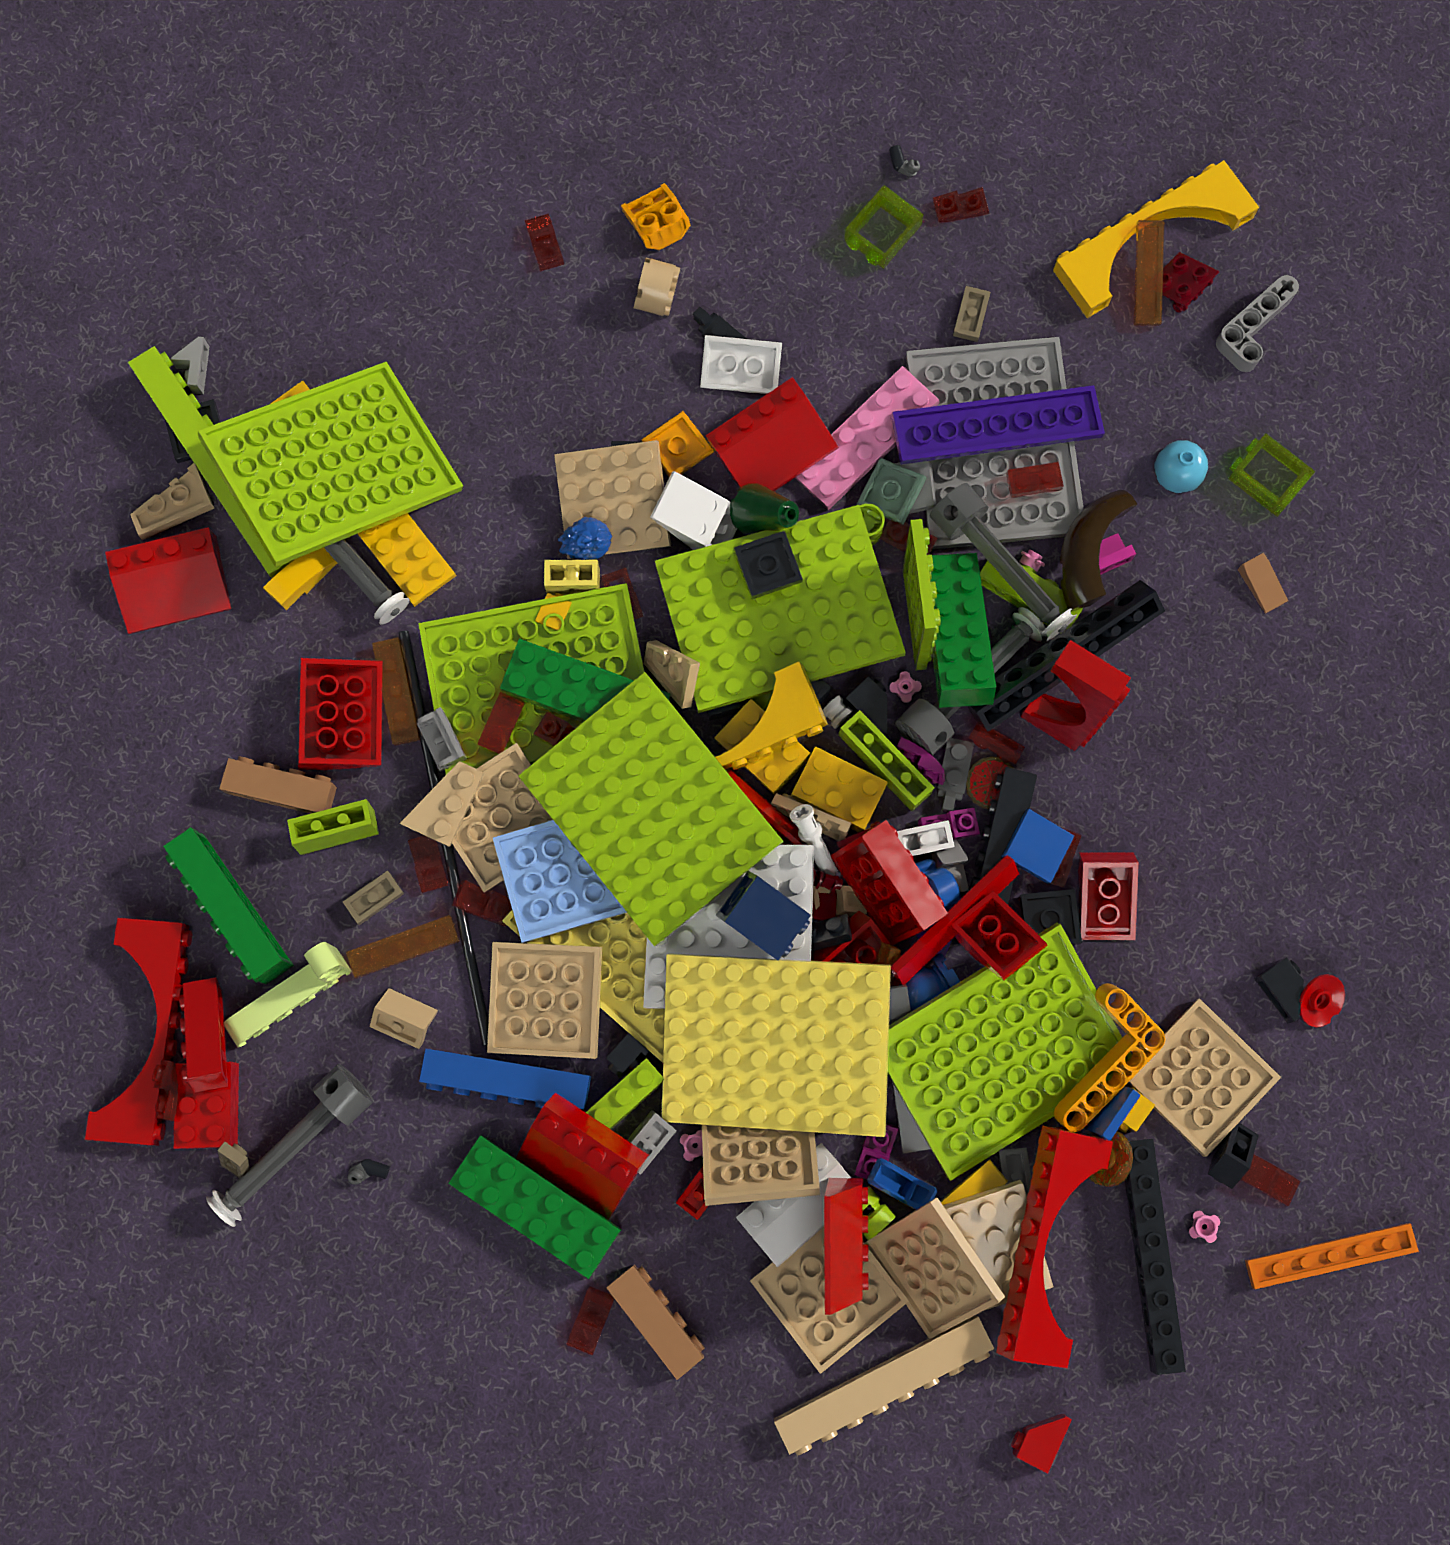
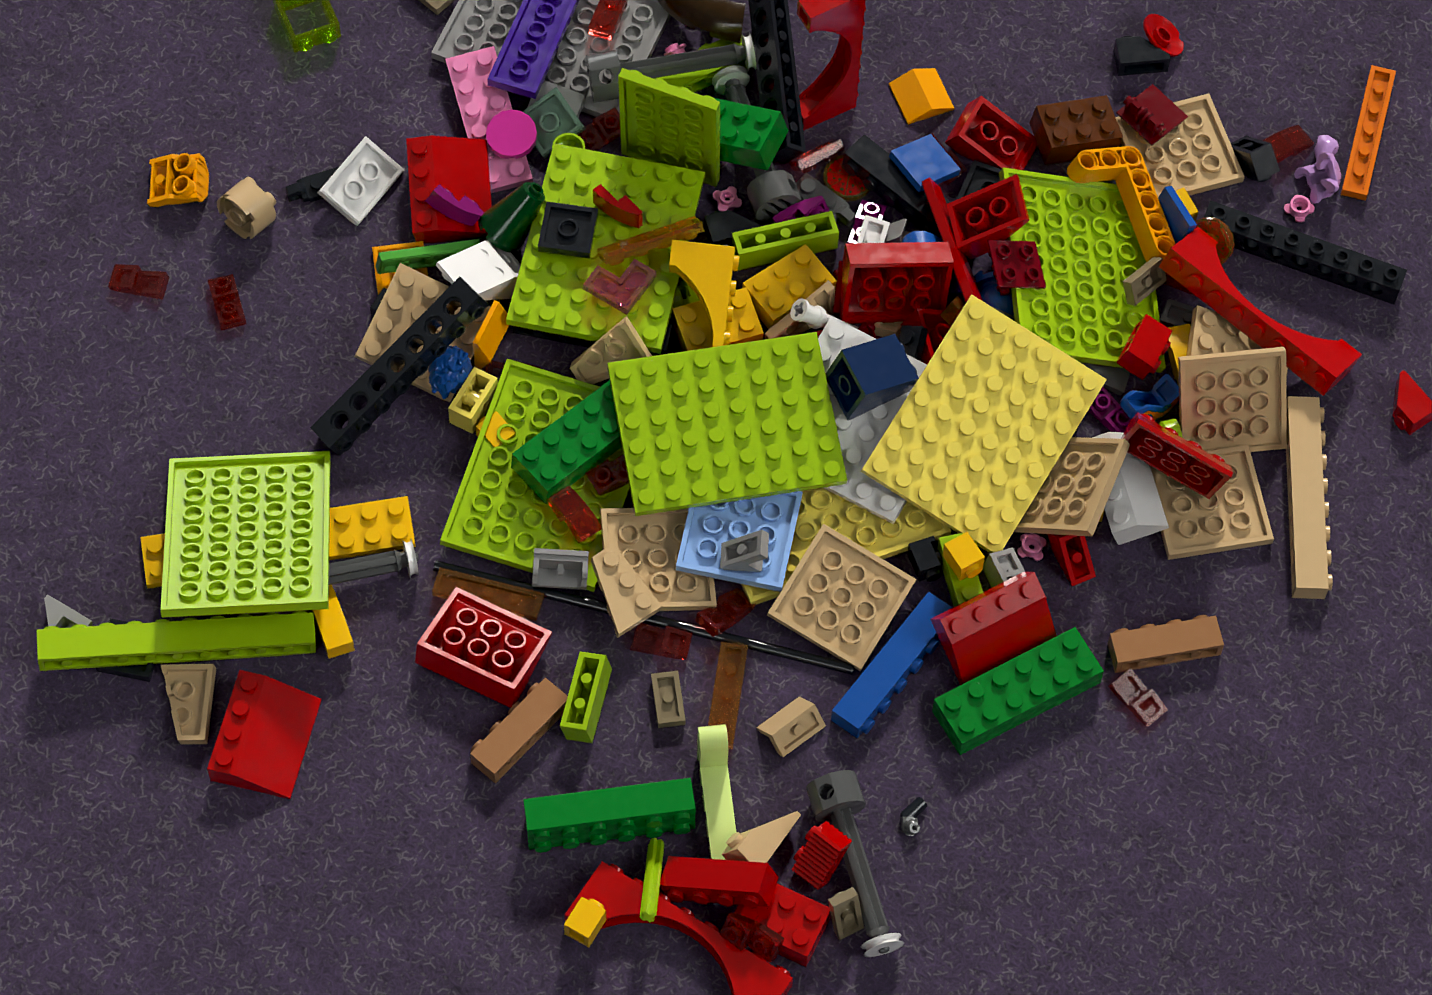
camera: 65 degrees left, 15 degrees down
(110, 939) = (585, 921): none -> yellow brick
(182, 975) = (652, 880): none -> lime axle
(262, 1049) = (760, 842): none -> tan slope
(278, 1110) = (821, 854): none -> red brick
(530, 892) = (745, 552): none -> light grey slope
(558, 497) = (386, 367): none -> black brick
(567, 320) = (227, 302): none -> clear red slope
(627, 1094) = (963, 556): none -> yellow brick
(638, 555) = (490, 335): none -> light orange slope
(691, 459) = (420, 256): none -> bright green tile
(733, 648) = (623, 291): none -> clear pink plate
(747, 464) = (462, 211): none -> magenta slope
(796, 642) = (660, 237): none -> clear orange plate
(815, 600) = (622, 210): none -> red slope
(855, 464) = (511, 134): none -> dark pink tile
(952, 1153) = (1144, 347): none -> red brick
(959, 990) = (1015, 265): none -> dark red hinge
(1025, 1116) = (1144, 281): none -> dark tan plate
(1121, 804) = (920, 94): none -> light orange slope
(1162, 969) = (1074, 126): none -> reddish brown brick
(1221, 1034) = (1151, 114): none -> dark red hinge
(1257, 1233) = (1325, 174): none -> lavender animal

